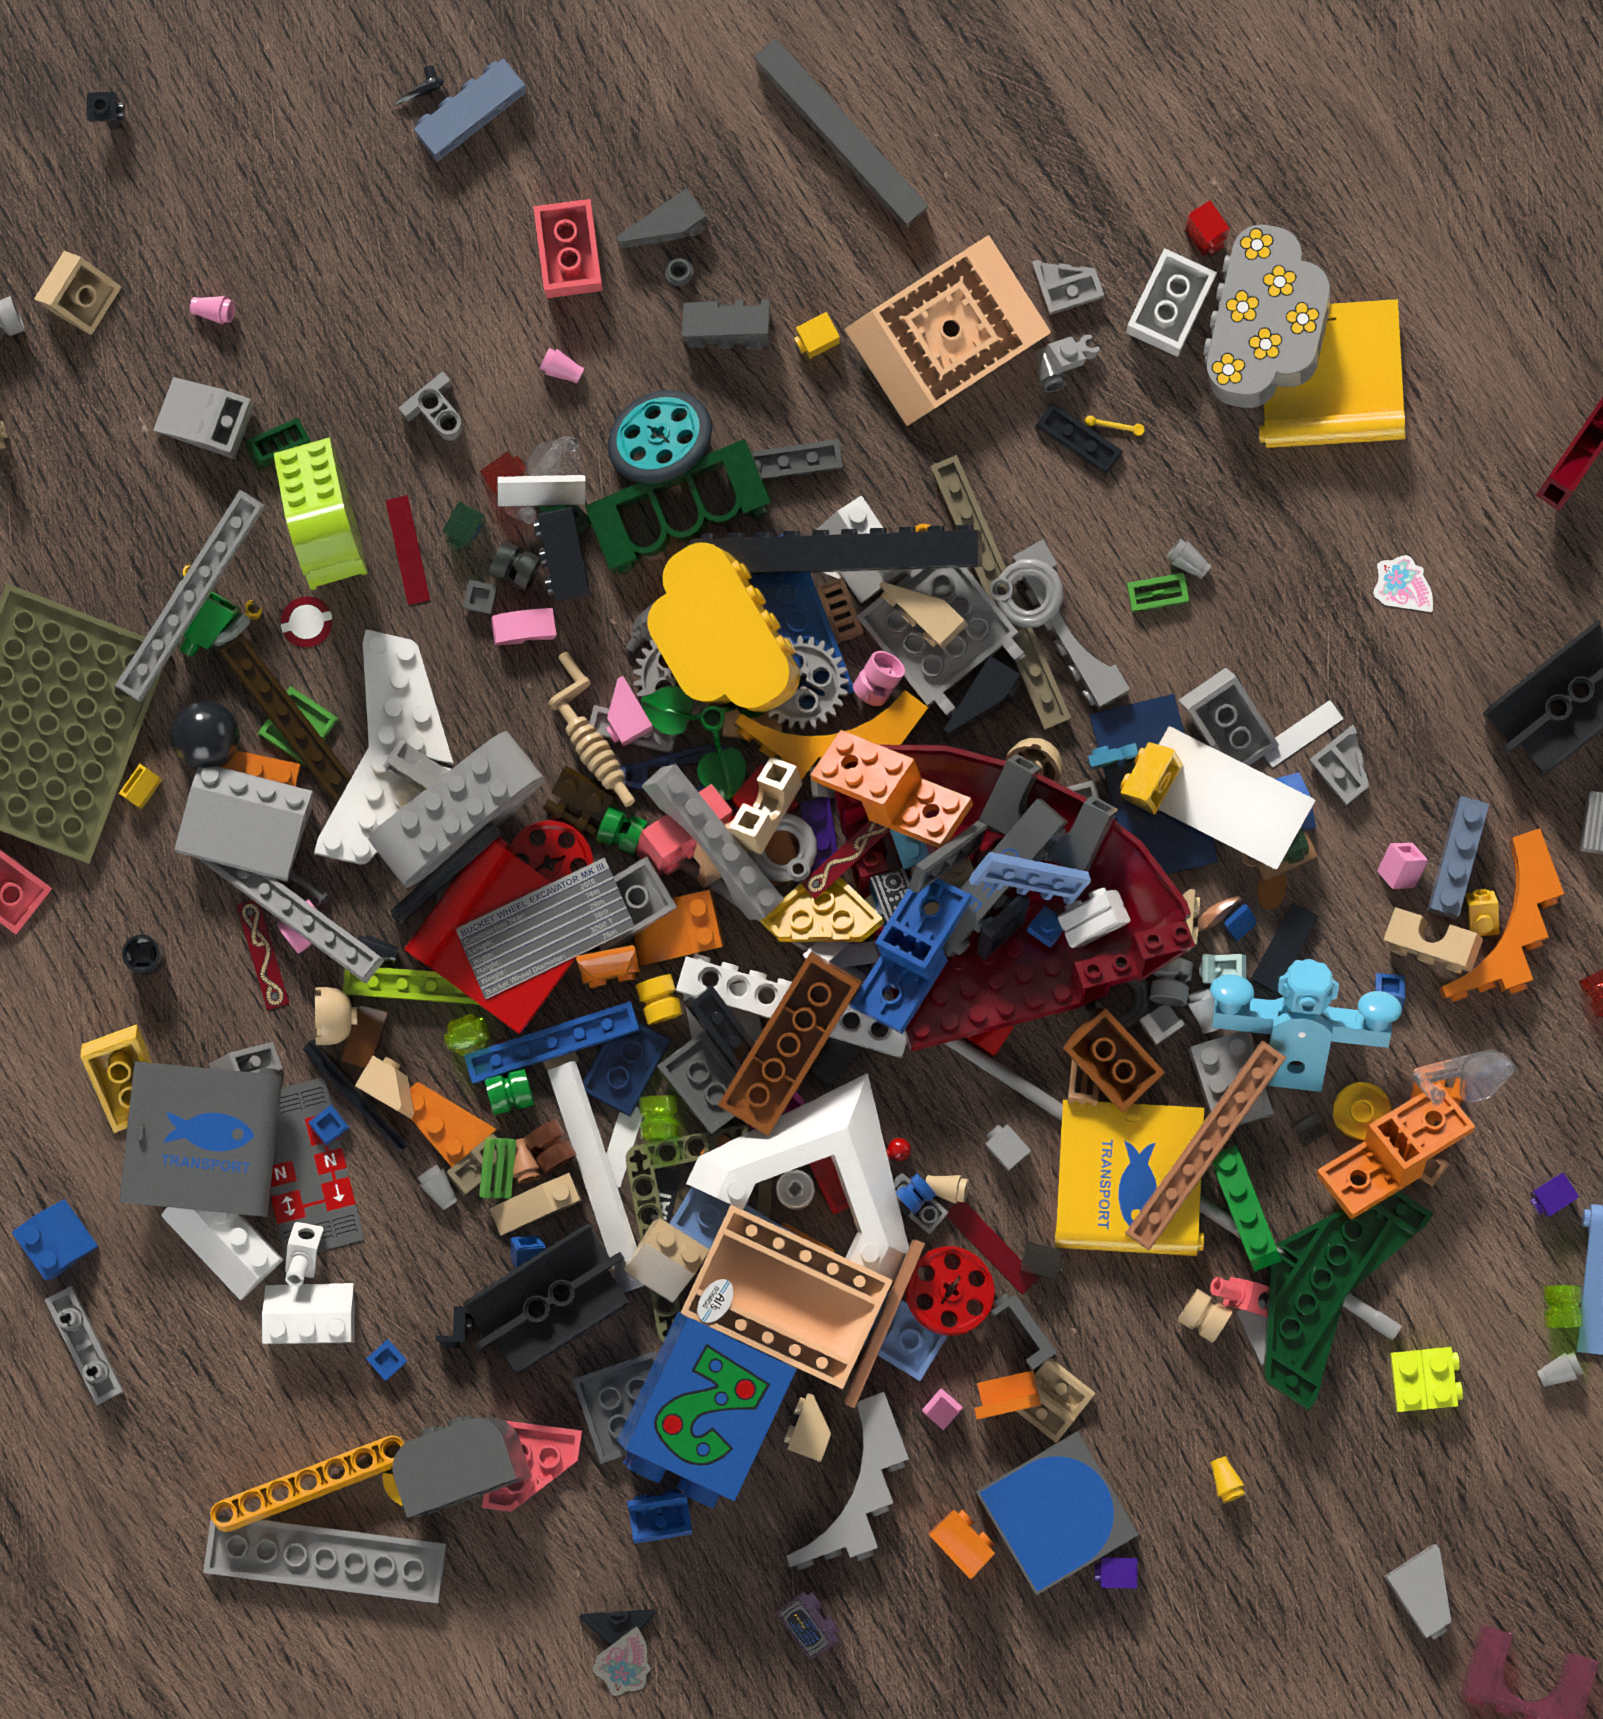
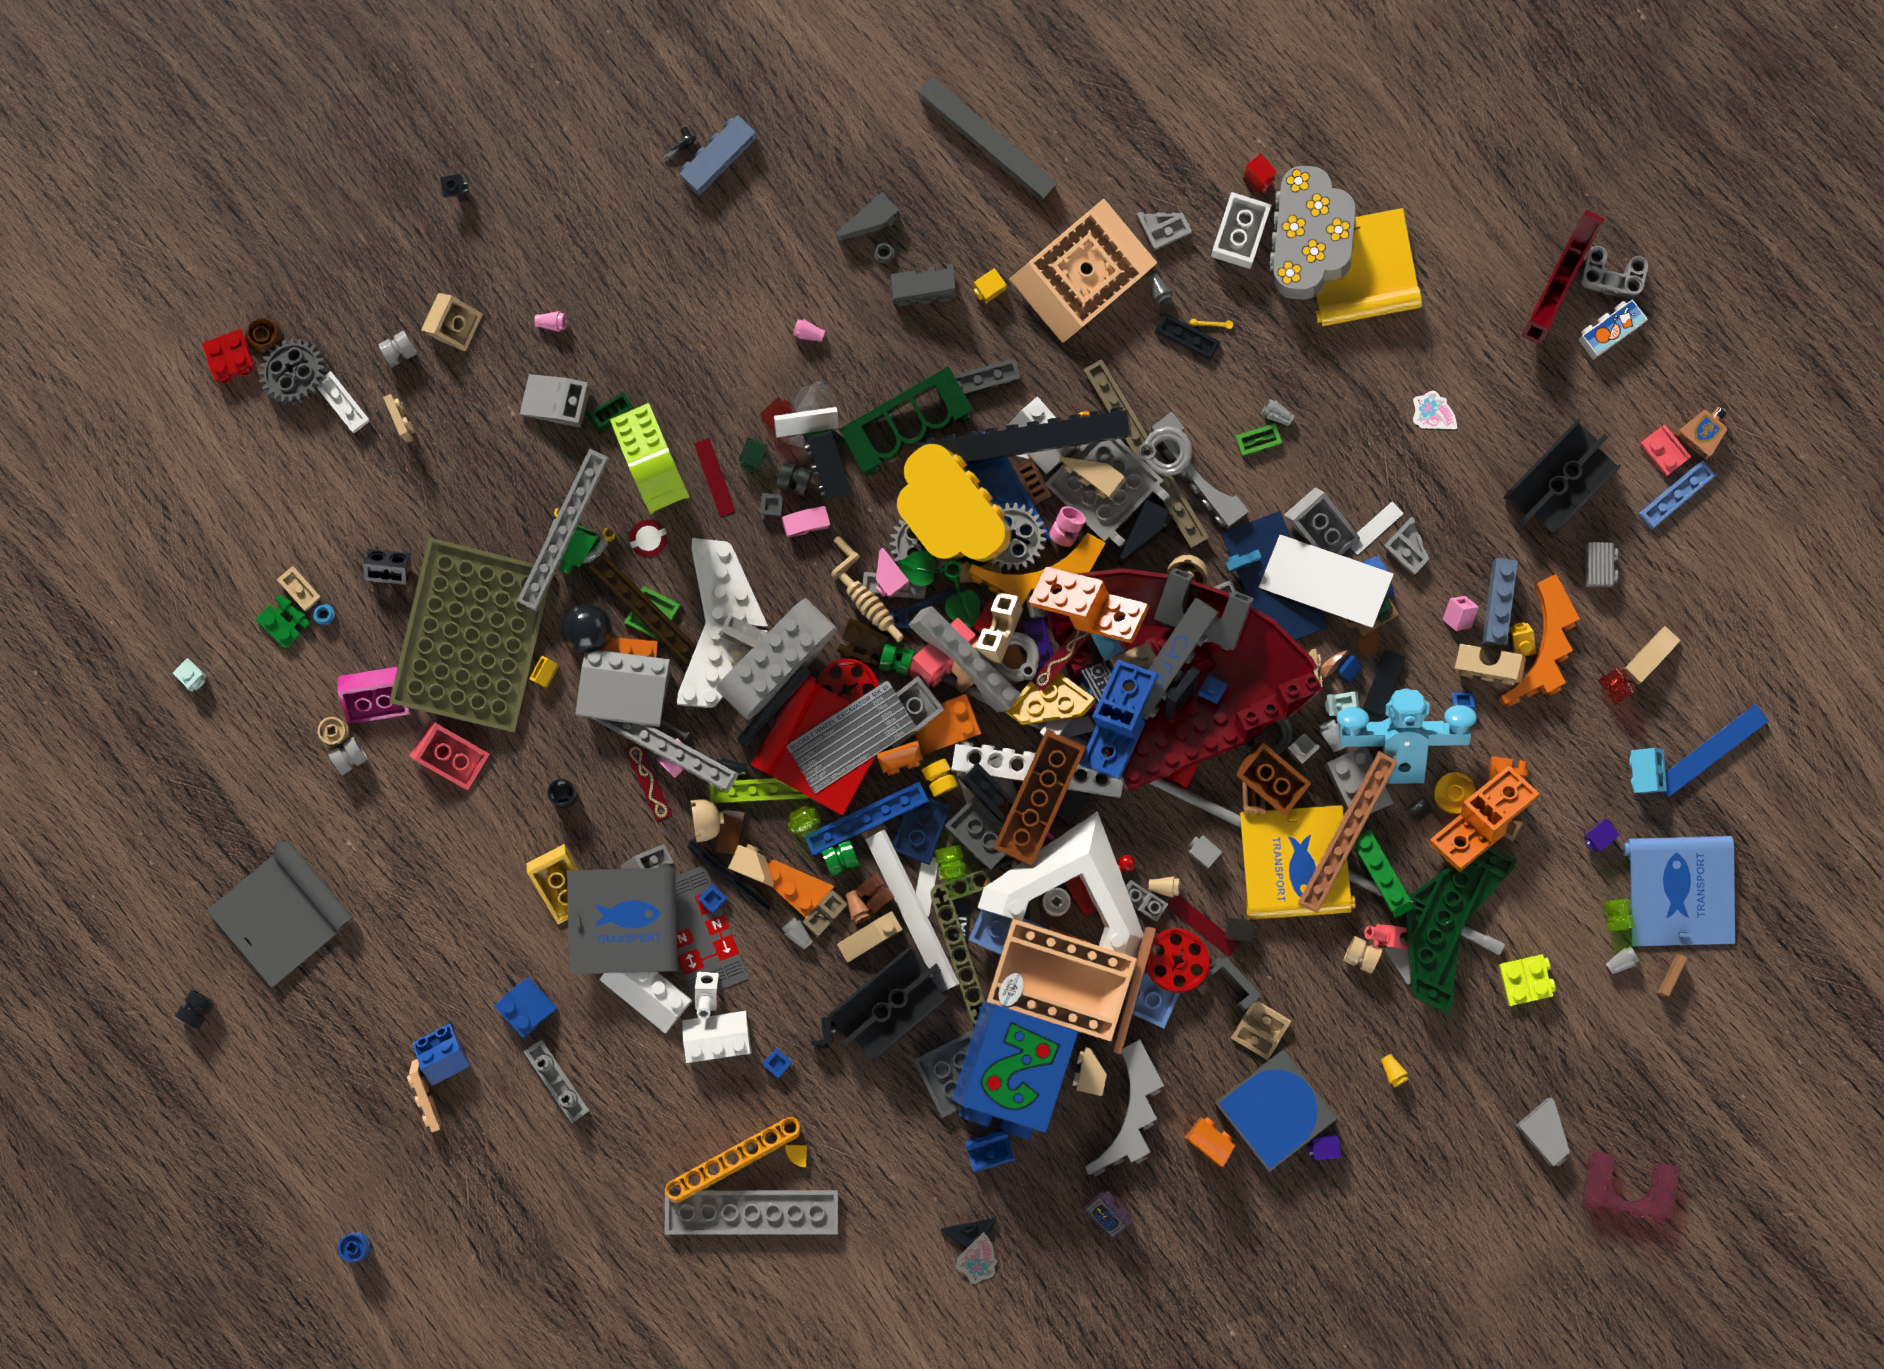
camera: 10 degrees left, 0 degrees up
(440, 413) = (725, 376): light grey tile -> none
(457, 1464) = (839, 1131): dark grey brick -> none
(499, 1170) = (843, 914): bright green tile -> none
(525, 1248) = (866, 970): blue slope -> none
(548, 1454) = (887, 1122): coral plate -> none
(568, 248) = (802, 245): coral brick -> none
(640, 632) = (891, 513): dark grey piece -> none
(665, 1260) = (970, 964): tan slope -> none
(684, 456) = (866, 361): wedge -> none
(916, 1193) = (1143, 893): blue wheel -> none
(942, 1409) = (1182, 1046): bright pink panel -> none
(947, 856) = (1136, 648): dark grey tile -> none
(1007, 1394) = (1228, 1030): orange panel -> none
(1030, 875) = (1198, 653): medium blue hinge -> none
(1068, 354) = (1172, 277): light grey plate -> none
(1093, 918) = (1246, 678): white brick -> none
(1151, 777) = (1273, 572): yellow slope -> none
(1171, 981) = (1306, 719): light grey wheel -> none
(1480, 1075) = (1537, 757): clear piece -> none

